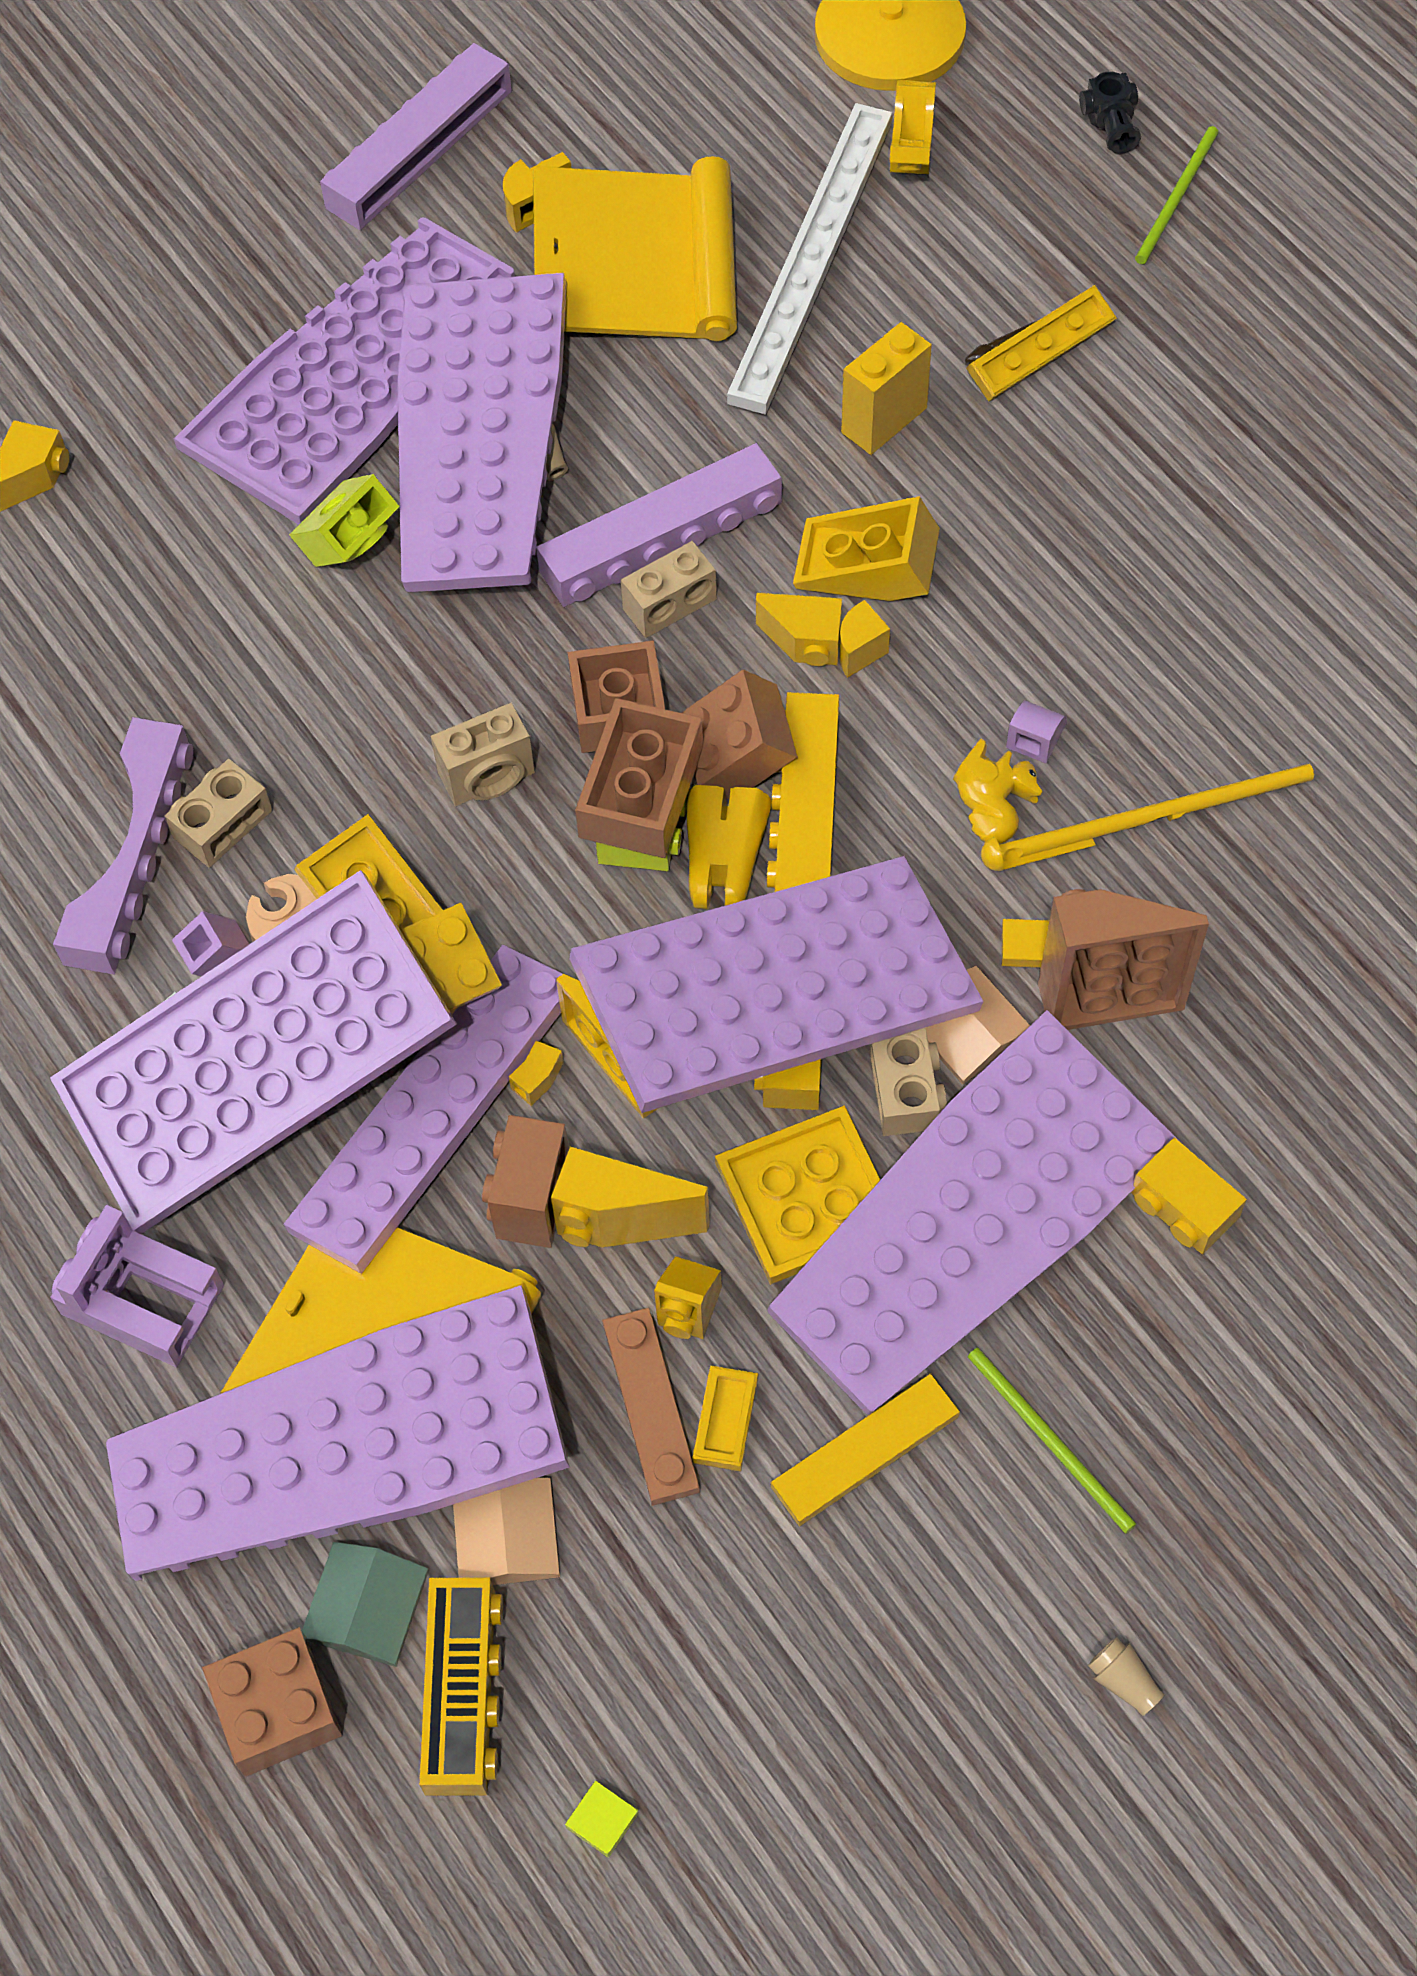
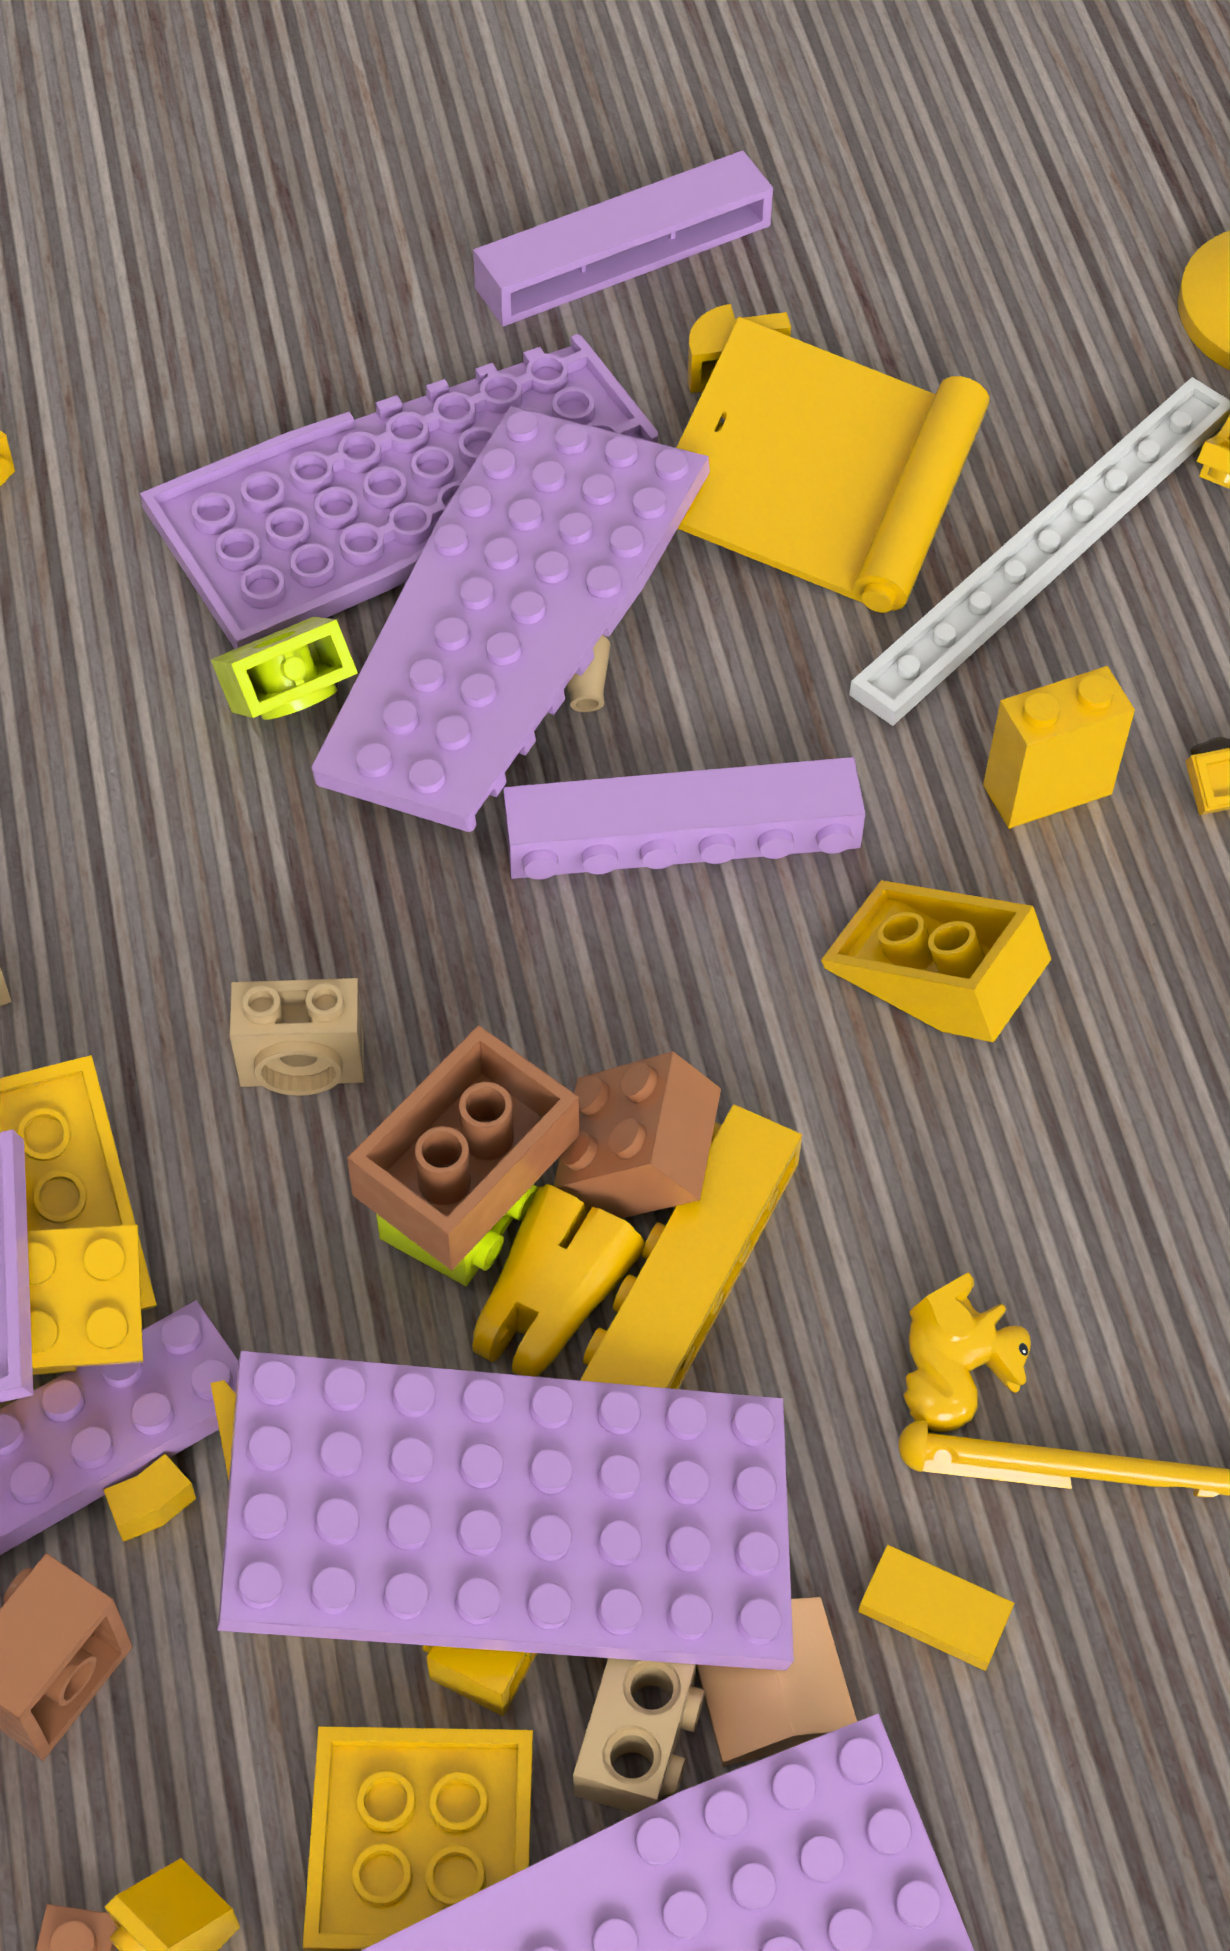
camera: 20 degrees right, 5 degrees down
(611, 673) = (519, 999): nougat brick -> none
(623, 1203) = (142, 1744): yellow slope -> none
(668, 589) = (650, 906): tan brick -> none
(802, 626) = (806, 1022): yellow slope -> none
(862, 638) = (874, 1069): yellow brick -> none
(1035, 731) = (1057, 1289): lavender brick -> none
(1117, 958) = (1004, 1684): nougat slope -> none

